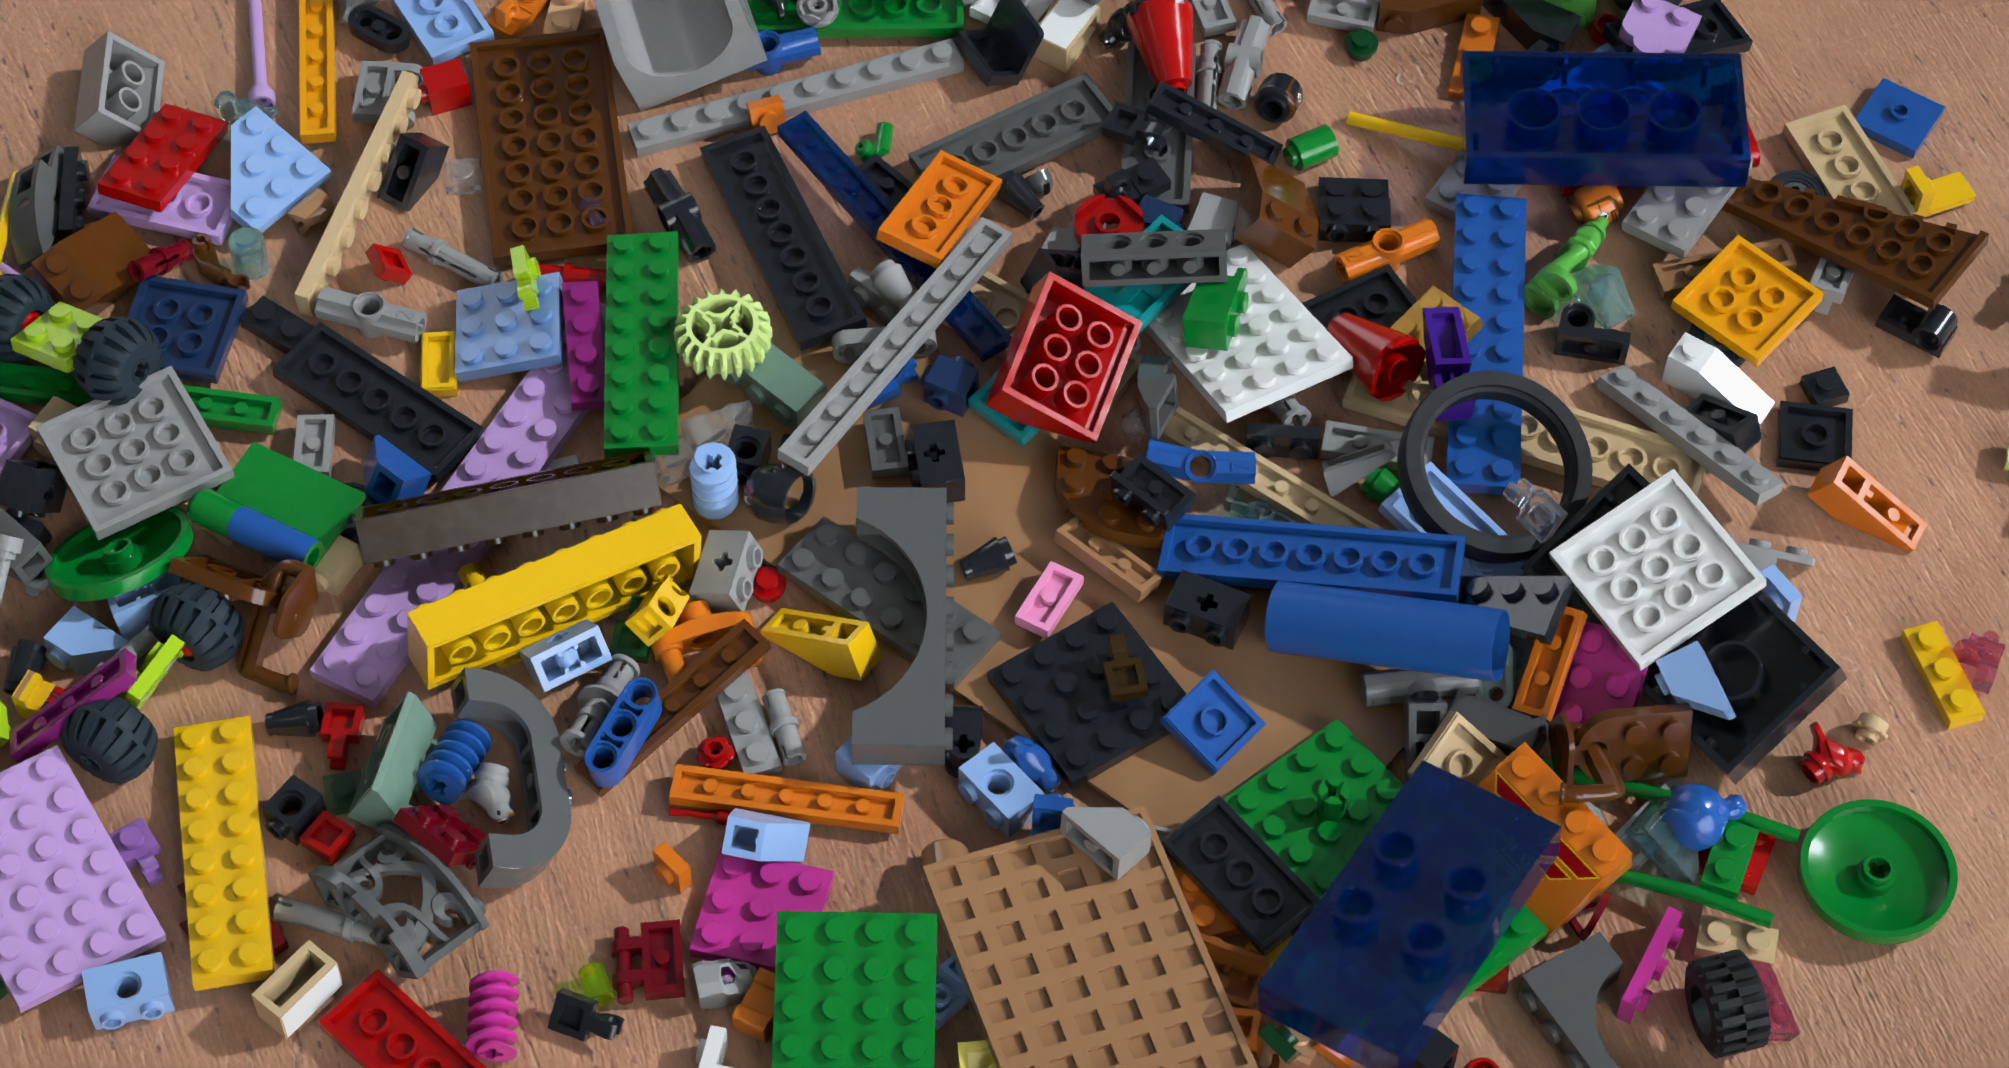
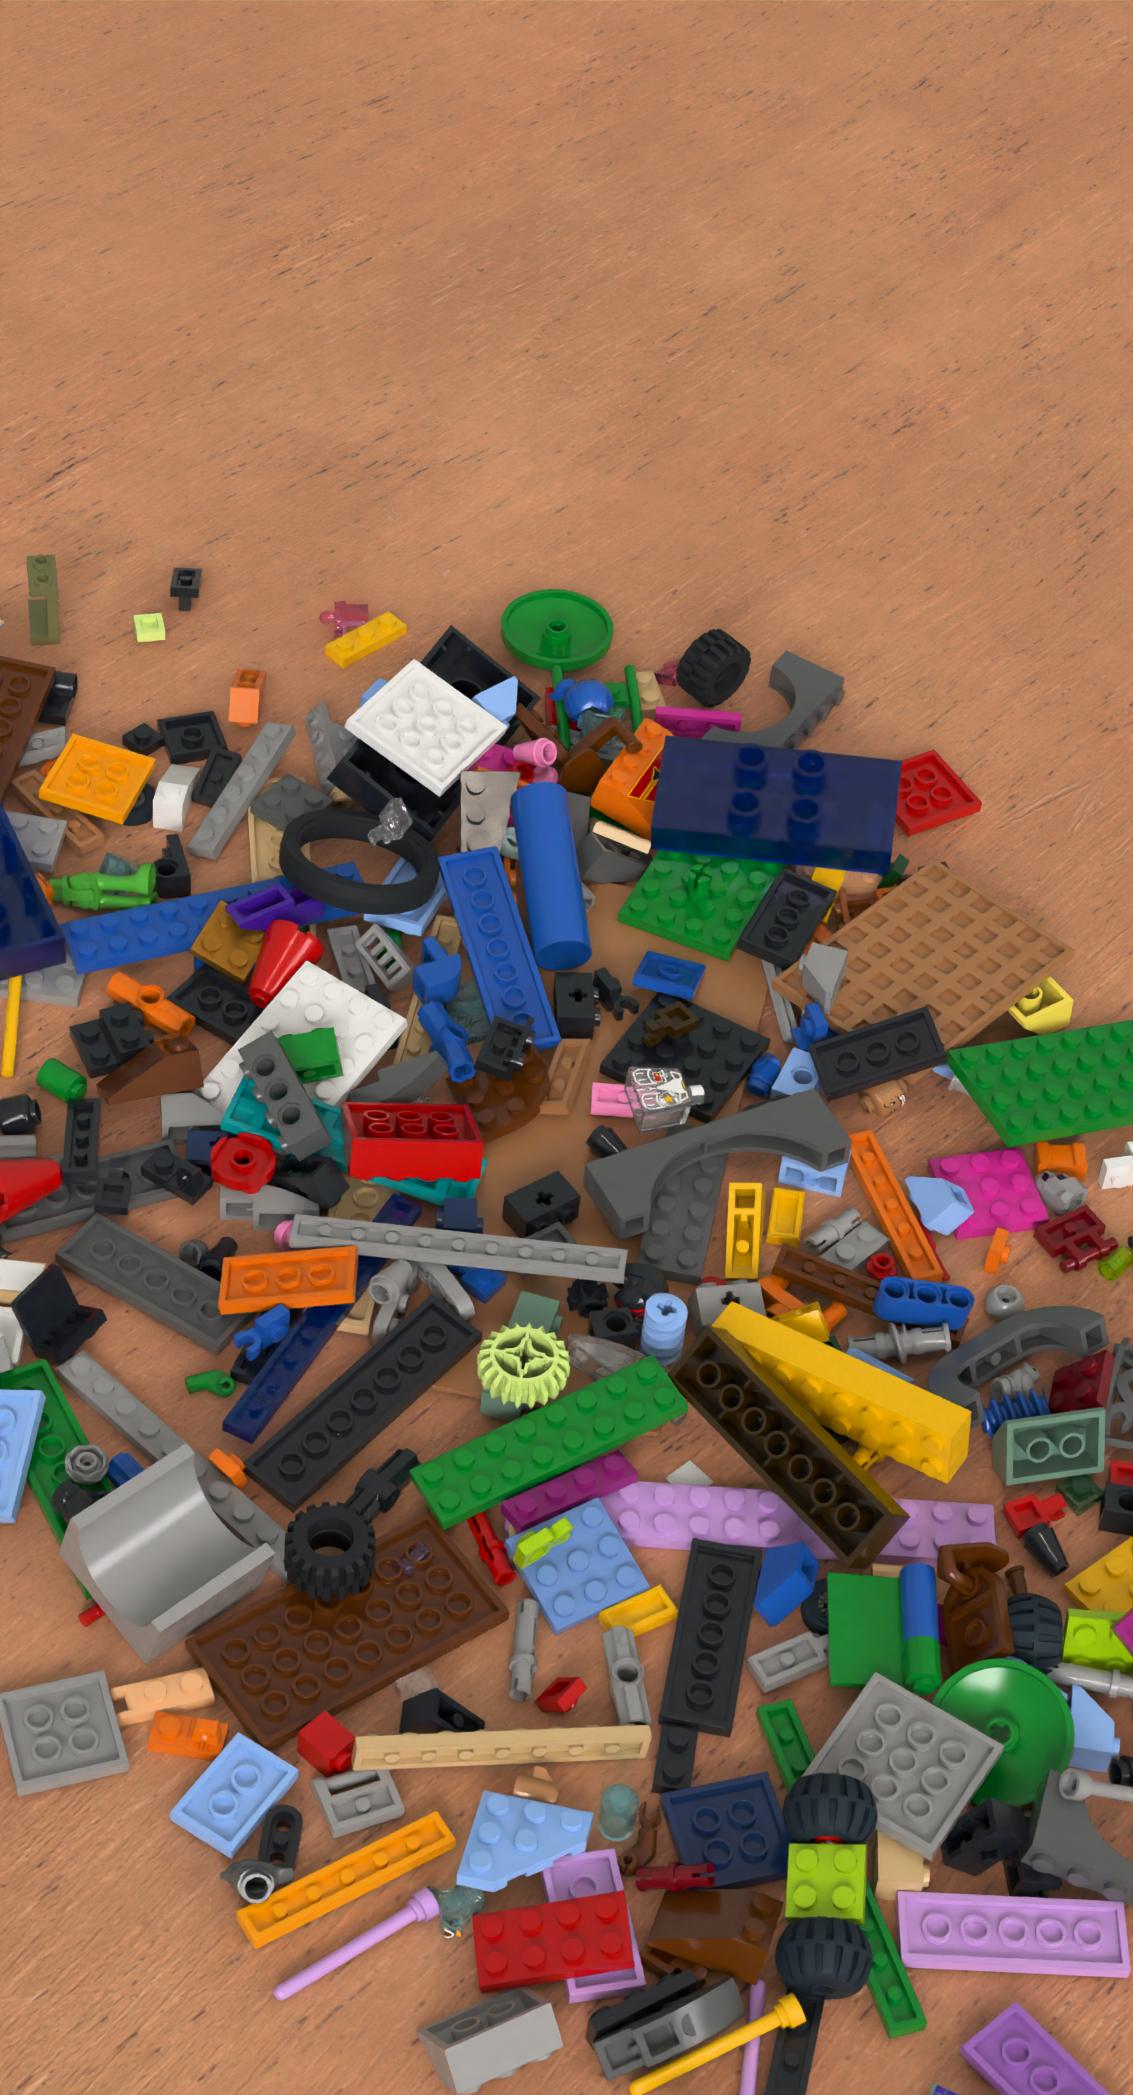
camera: 120 degrees left, 10 degrees down
(611, 858) = (1004, 1302): none -> light grey plate
(612, 112) = (329, 1574): none -> black tyre
(827, 698) = (785, 1217): none -> yellow tile
(895, 184) = (268, 1329): none -> blue plate
(971, 844) = (877, 1053): none -> black tile
(1017, 610) = (660, 1097): none -> clear torso
(1018, 257) = (282, 1236): none -> bright pink plate
(1210, 652) = (610, 994): none -> black plate
(1300, 500) = (438, 975): none -> blue brick
(1574, 706) = (545, 774): none -> bright pink plate
(1578, 670) = (526, 774): none -> red plate
(1597, 695) = (536, 752): none -> bright pink cone
(1644, 452) = (289, 800): none -> dark grey plate

